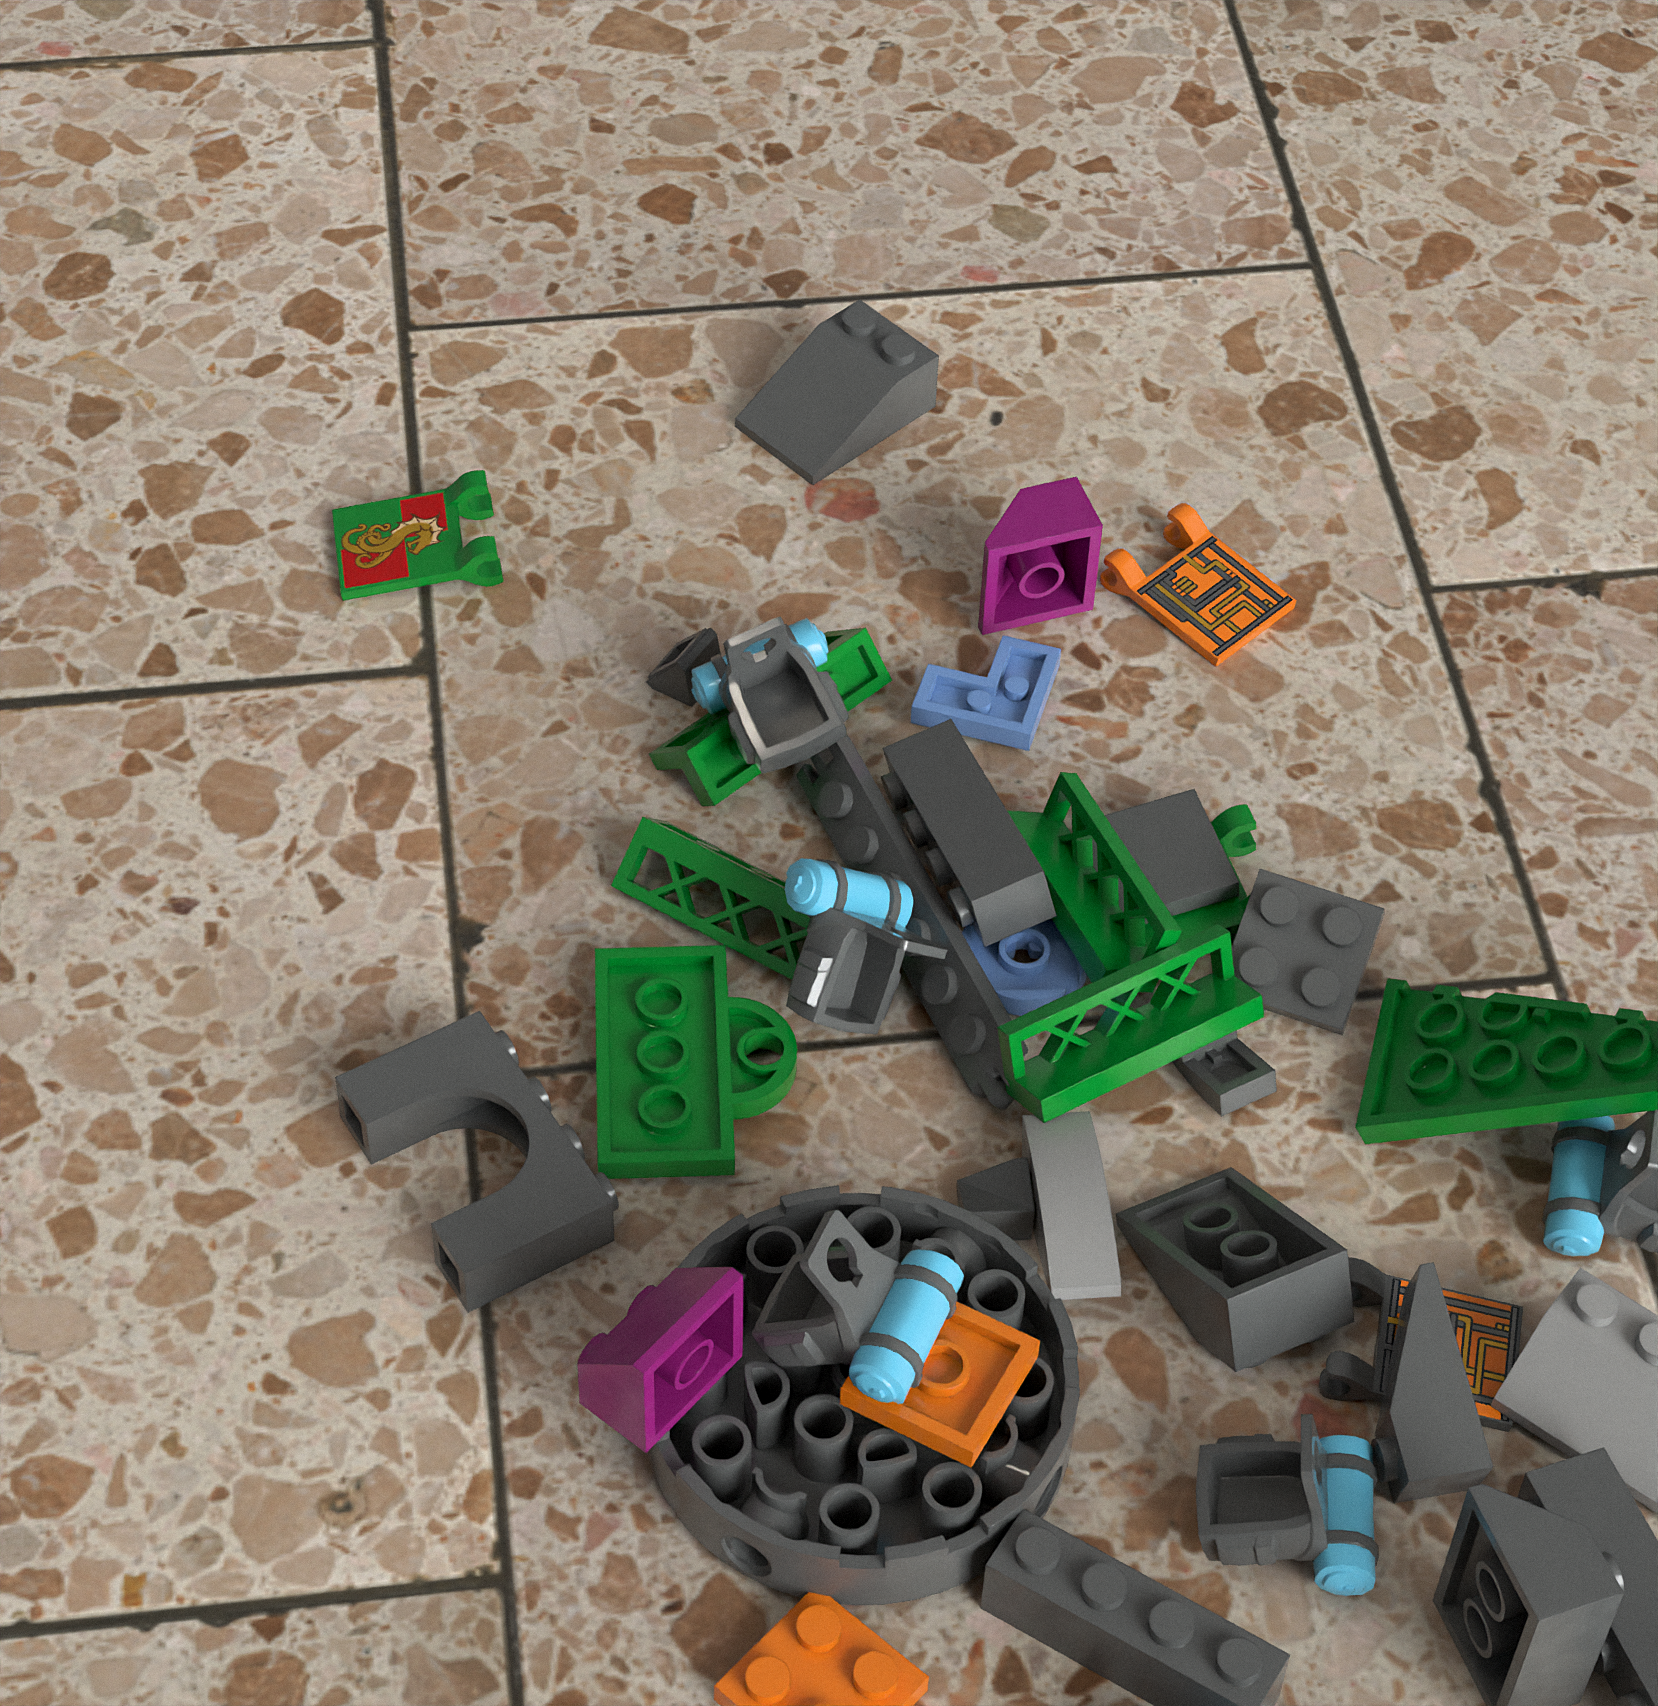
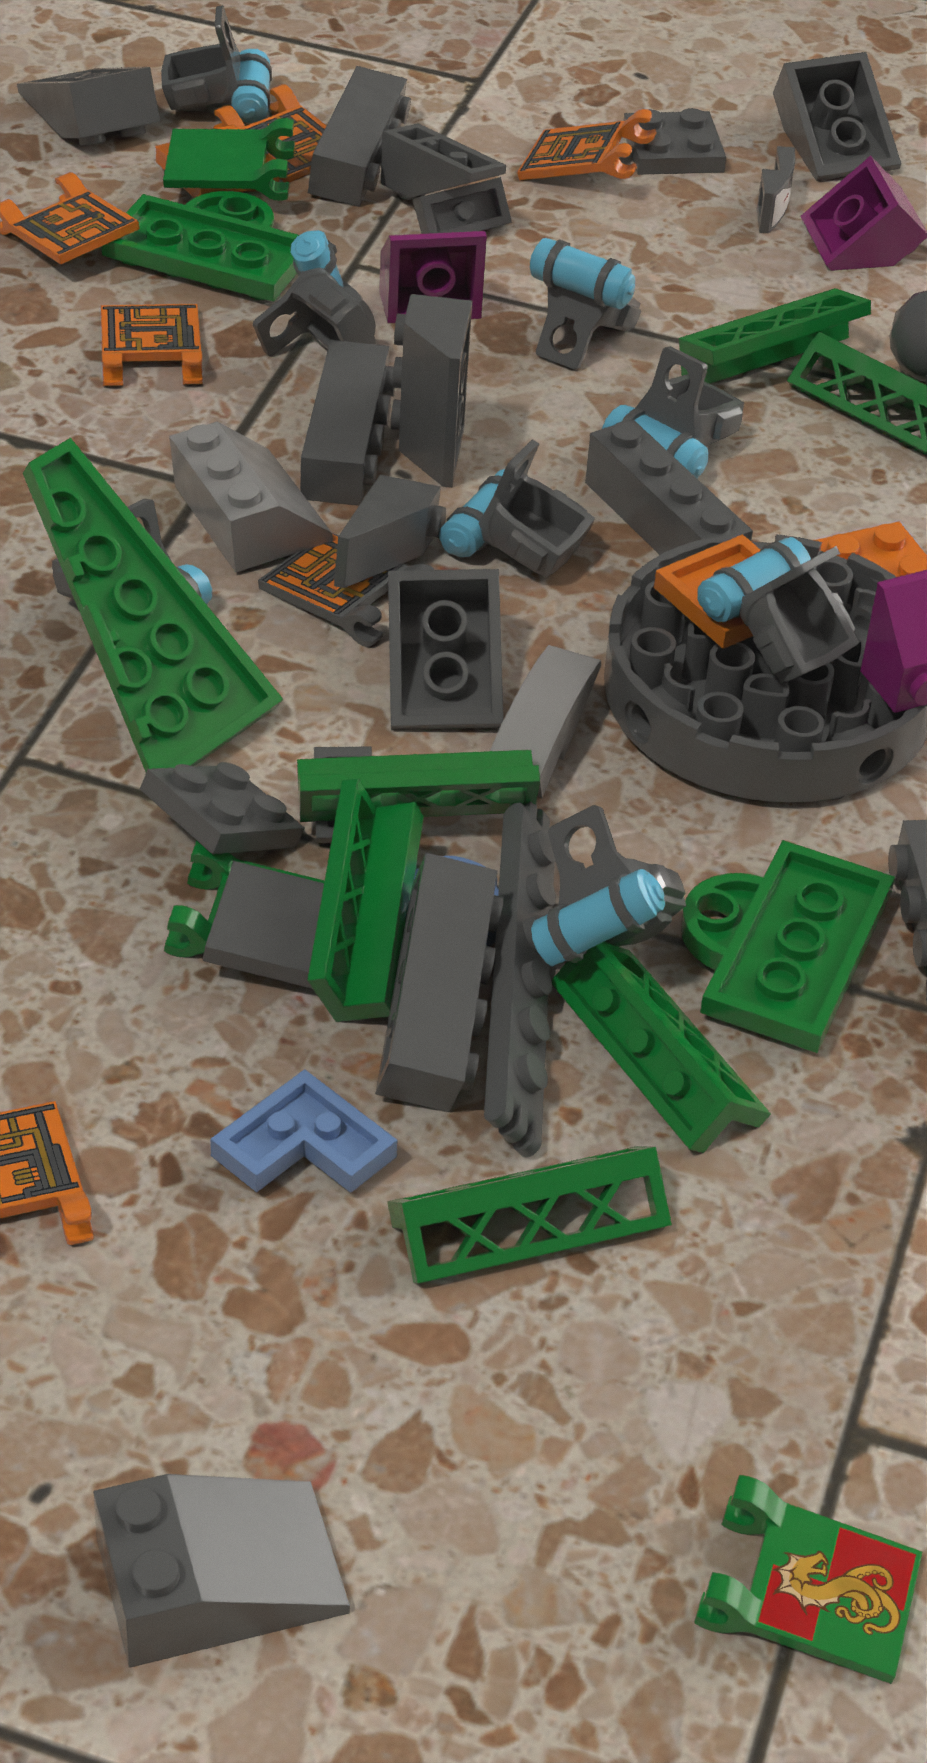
camera: 155 degrees left, 5 degrees down
(674, 671) = (586, 1297): dark grey slope -> none
(774, 693) = (548, 1140): dark grey piece -> none
(1001, 1197) = (590, 756): dark grey slope -> none
(1040, 558) = (175, 1207): magenta slope -> none

